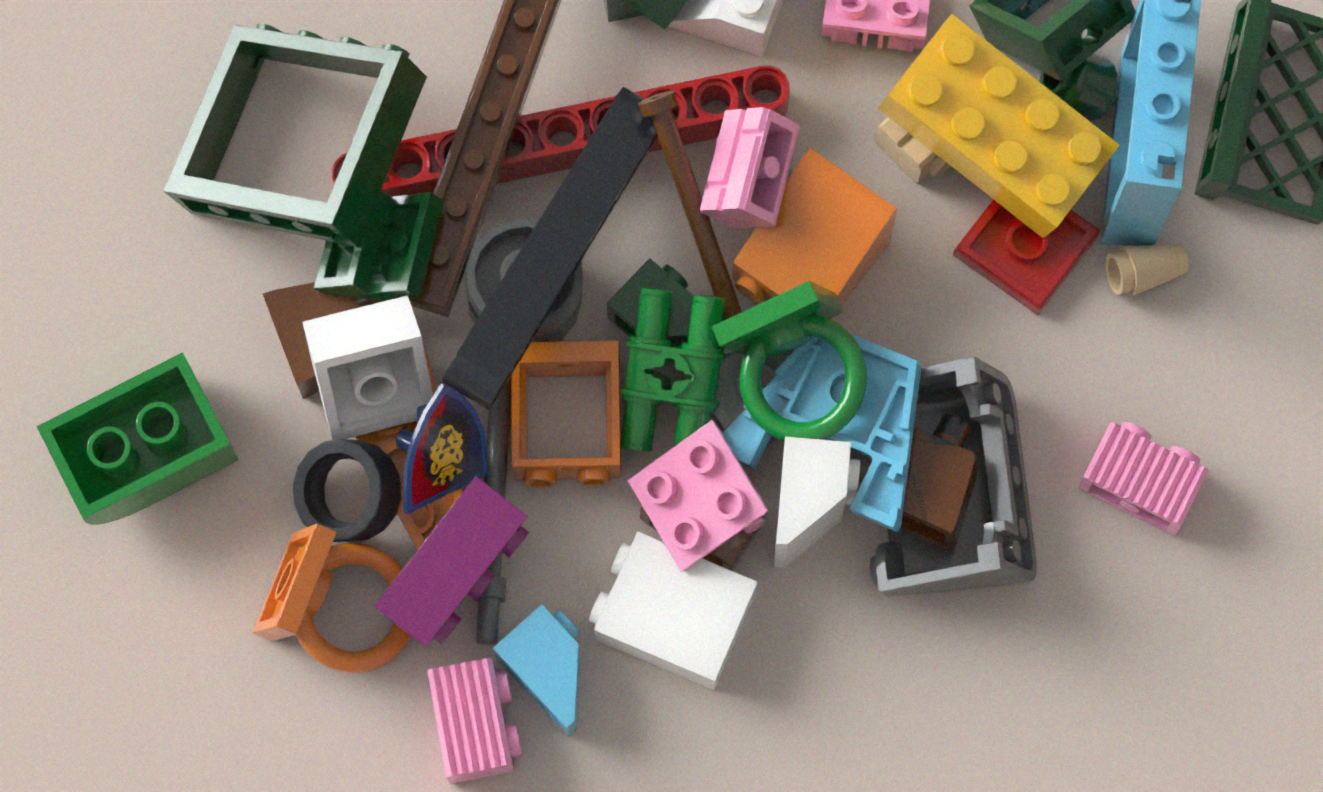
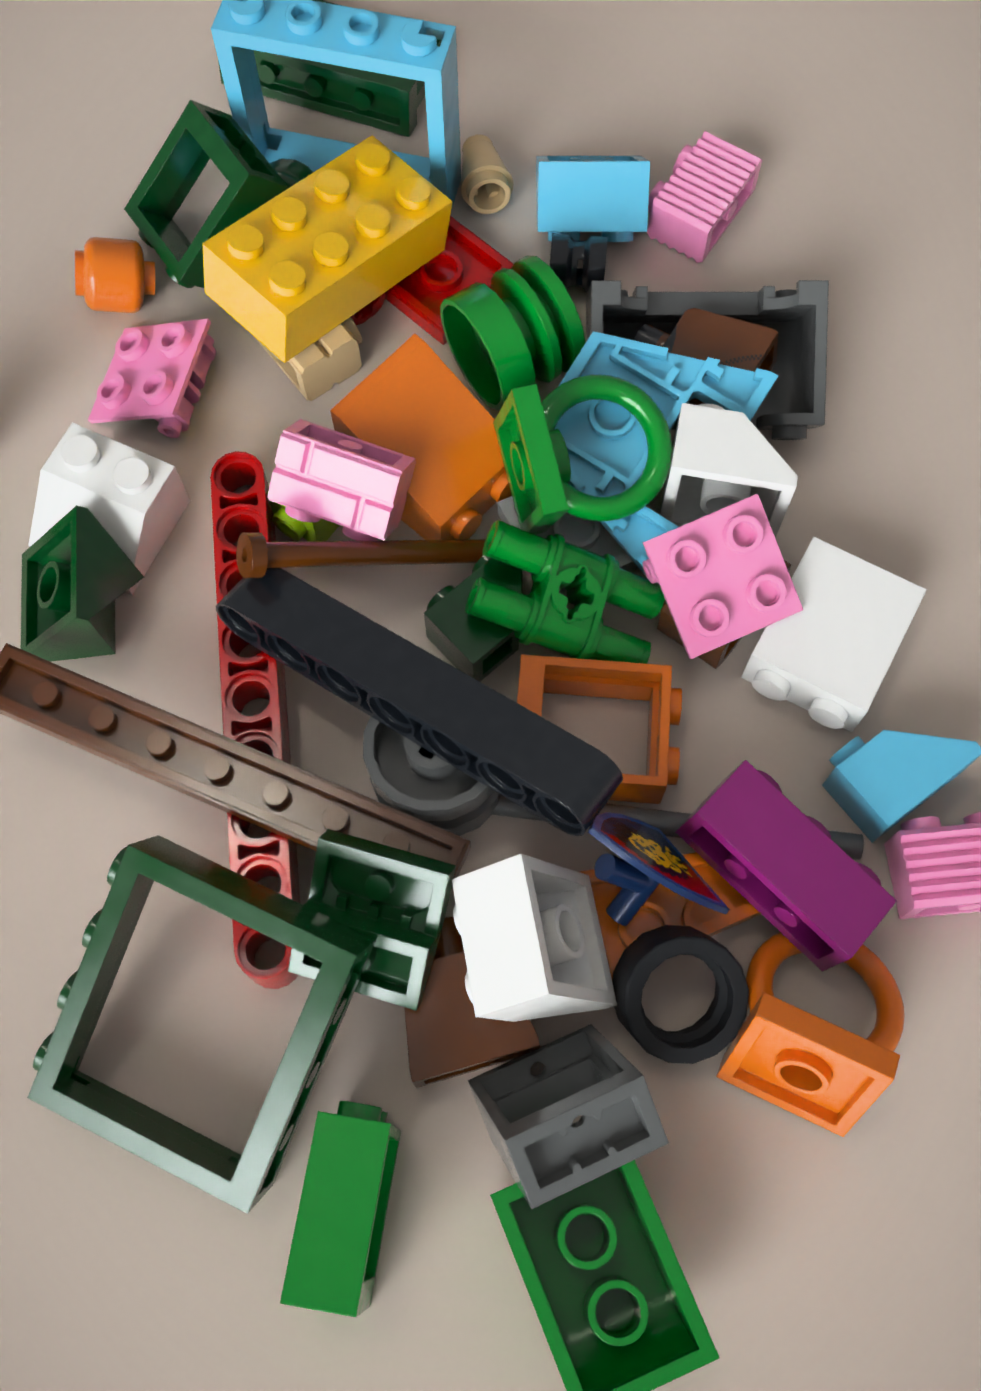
camera: 85 degrees left, 5 degrees down
(169, 256) = (342, 1211): none -> green window
(254, 416) = (534, 1115): none -> dark grey window
(932, 295) = (512, 330): none -> green wheel
(1045, 363) = (565, 258): none -> black wheel
(1134, 367) = (593, 195): none -> medium azure slope

